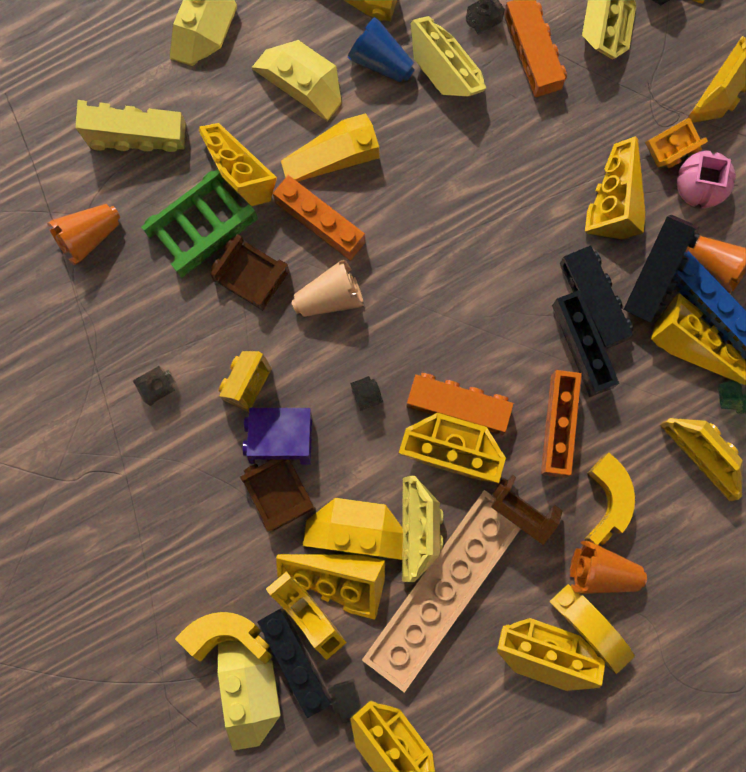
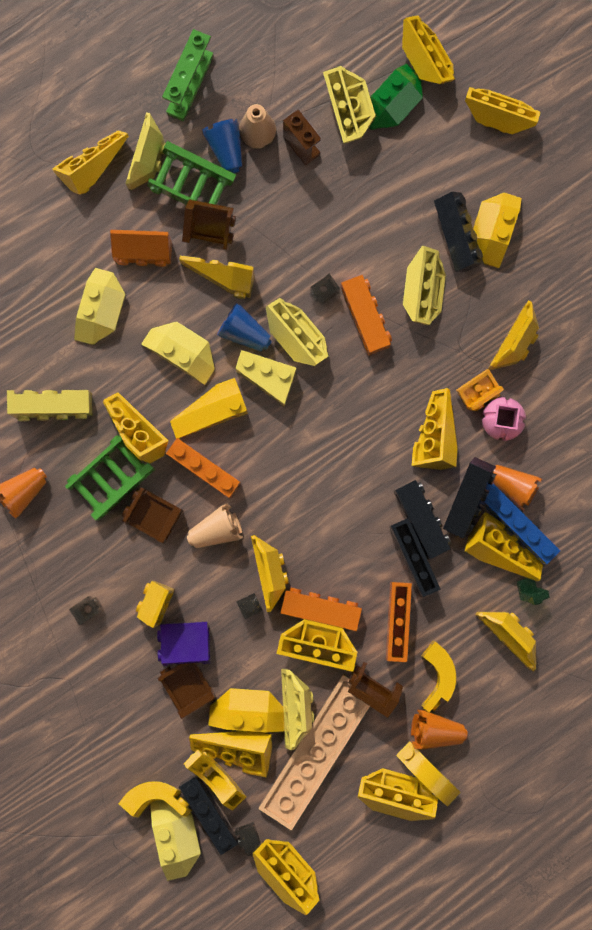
camera: 10 degrees left, 5 degrees up
(396, 351) = (270, 571): none -> yellow wedge
(406, 108) = (267, 374): none -> light yellow wedge

